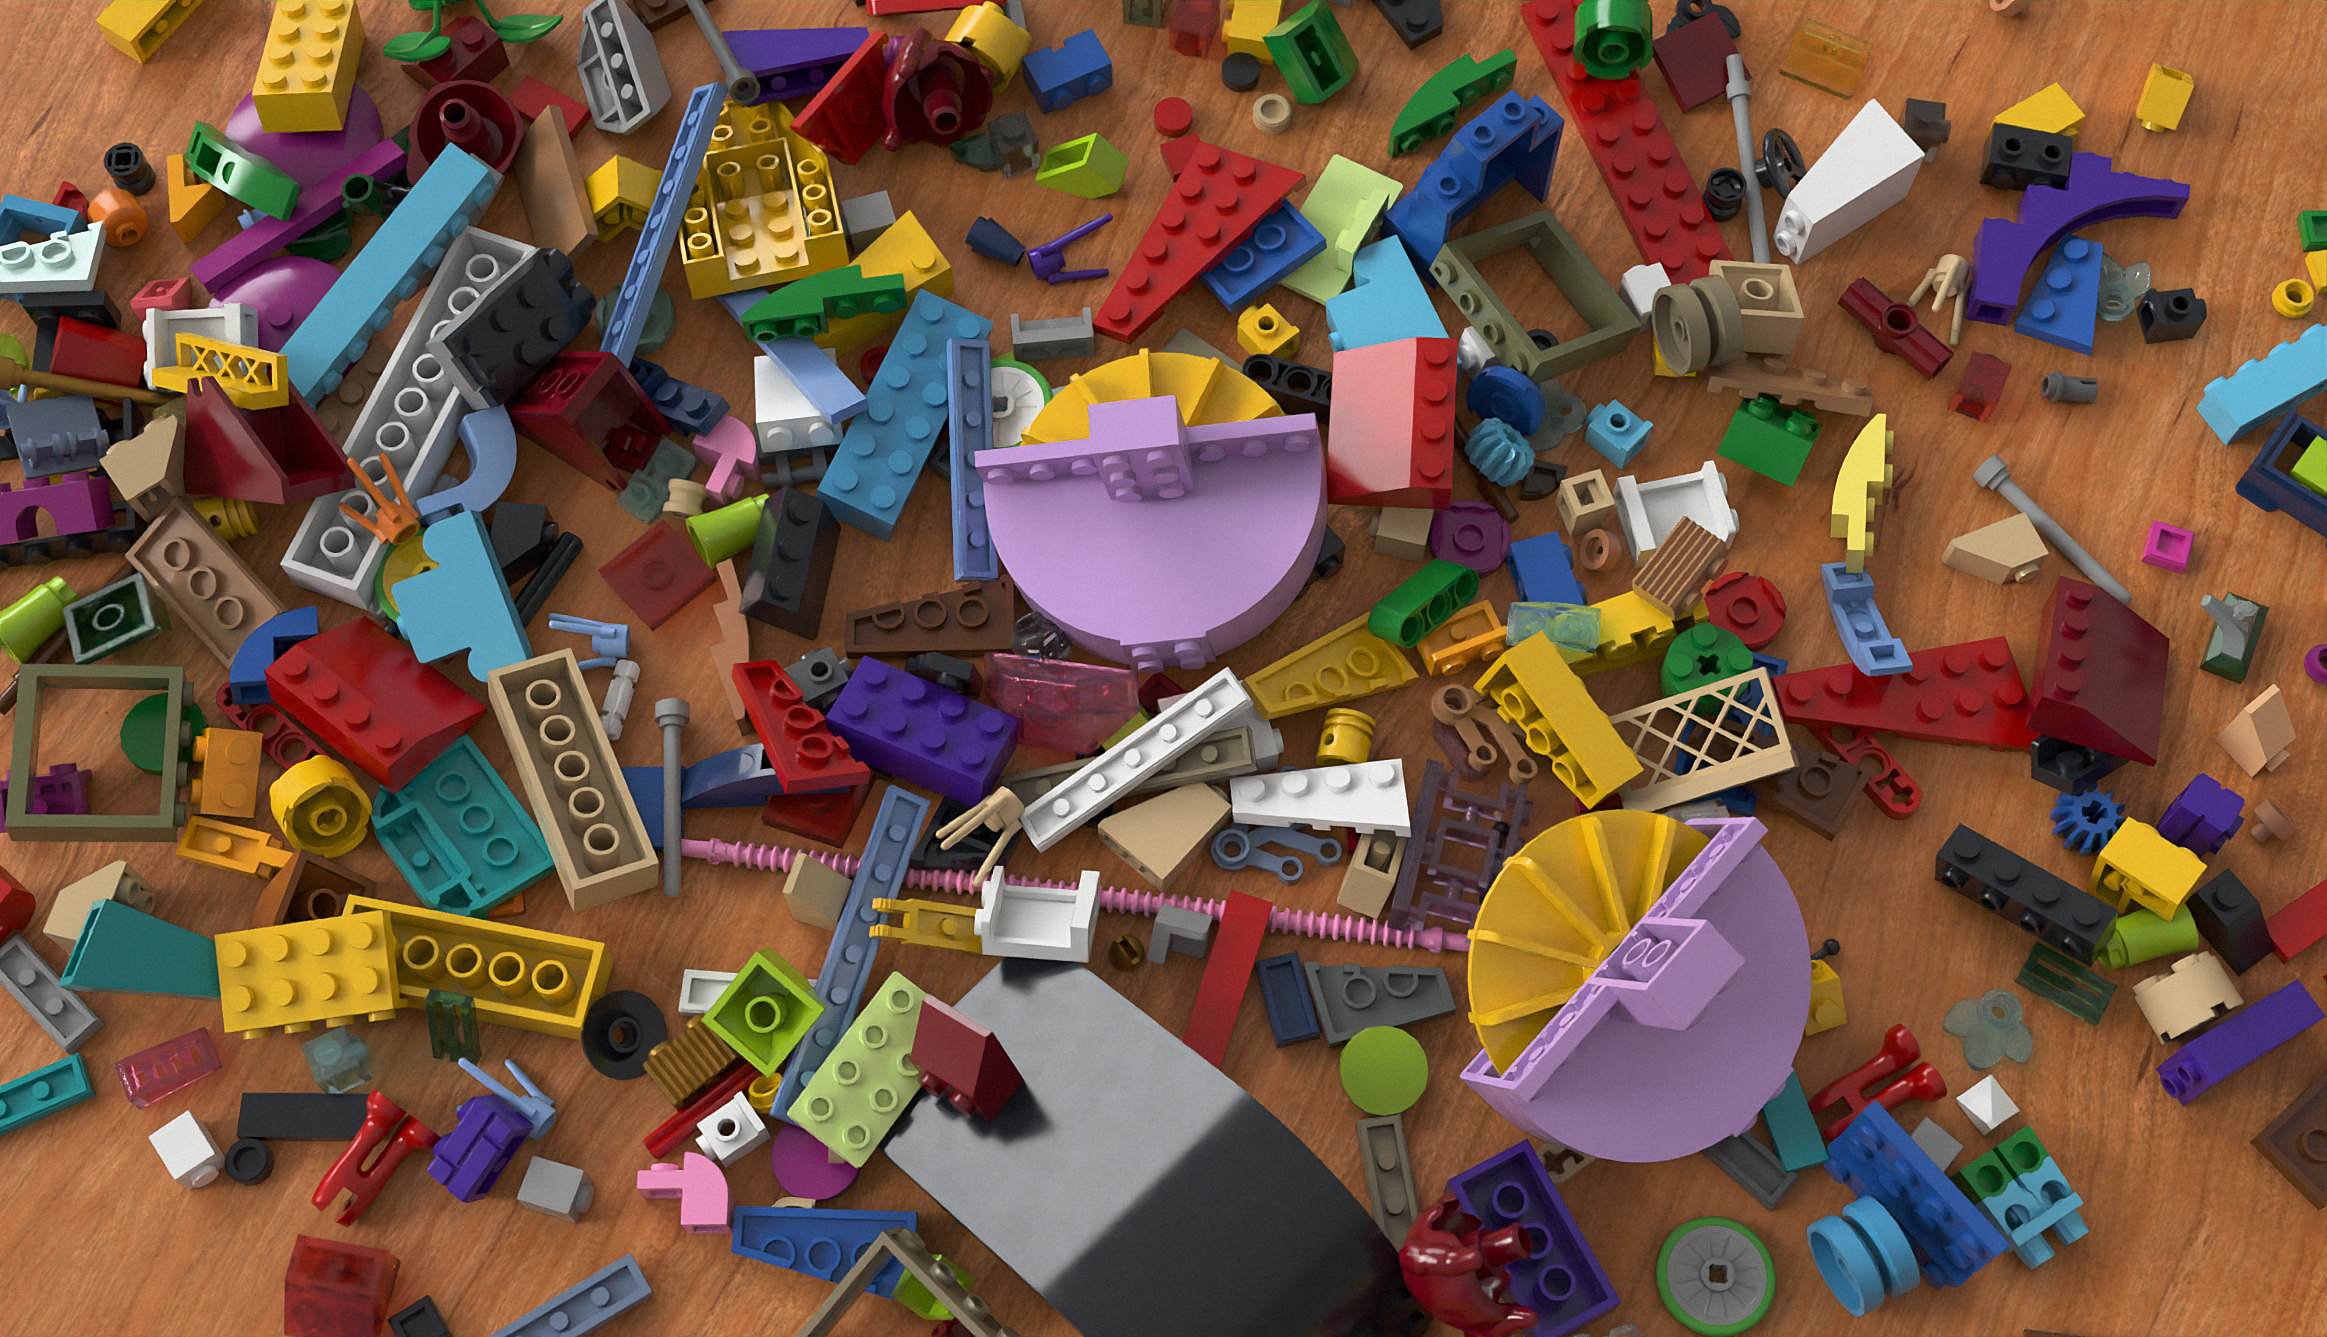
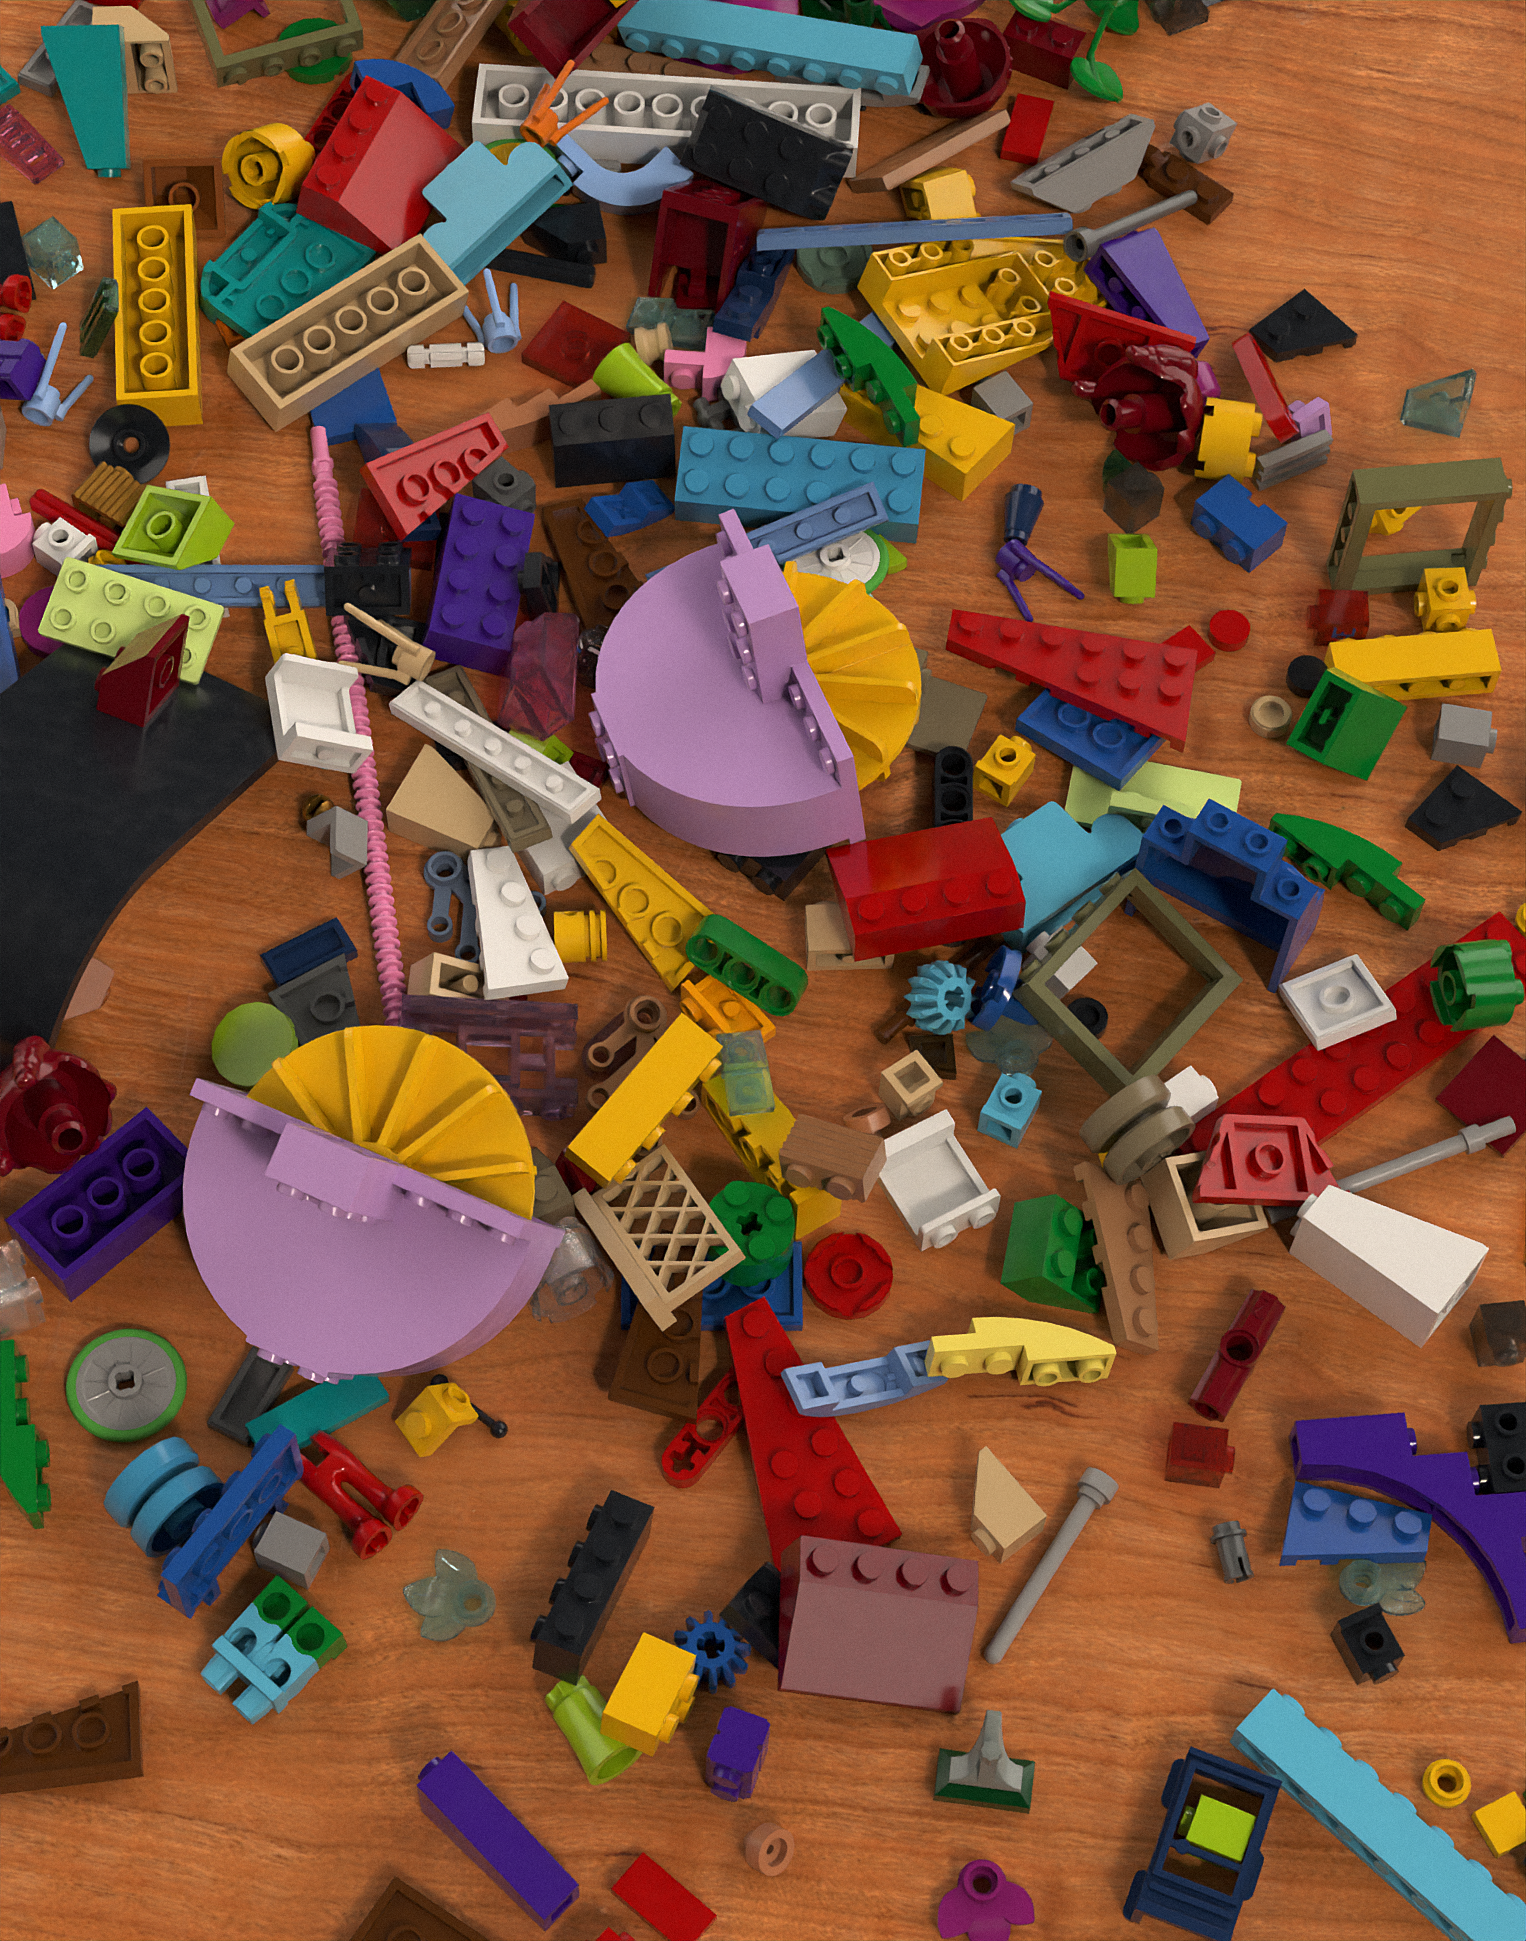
camera: 70 degrees right, 5 degrees down
(225, 772) = (286, 96): light orange bracket -> none
(232, 848) = (221, 120): light orange hinge -> none
(308, 974) = (110, 197): yellow bracket -> none
(672, 716) = (436, 396): light grey piece -> none
(816, 892) = (295, 533): tan slope -> none
(870, 575) = (630, 510): none -> blue slope
(892, 825) = (368, 579): none -> black bracket
(1053, 338) = (933, 585): light grey hinge -> none
(1227, 976) = (307, 892): red tile -> none
(1388, 1175) = (161, 1079): dark tan tile -> none
(1471, 536) = (844, 1004): magenta tile -> none
(1543, 571) = (817, 1074): blue brick -> none
(1588, 150) = (1337, 1002): none -> white tile
(1724, 193) = (1345, 1145): black wheel -> none
(1741, 244) = (1262, 1163): none -> red wing
(1776, 165) = (1380, 1185): black piece -> none
(1947, 280) = (1322, 1399): tan plant -> none
(1987, 1105) = (368, 1610): white slope -> none
(2058, 997) = (511, 1703): clear green tile -> none
(2168, 547) = (1073, 1693): dark pink tile -> none
(2188, 998) = (526, 1772): tan brick -> none
(2231, 921) = (634, 1817): black slope -> none
(2260, 733) = (861, 1808): light nougat slope -> none

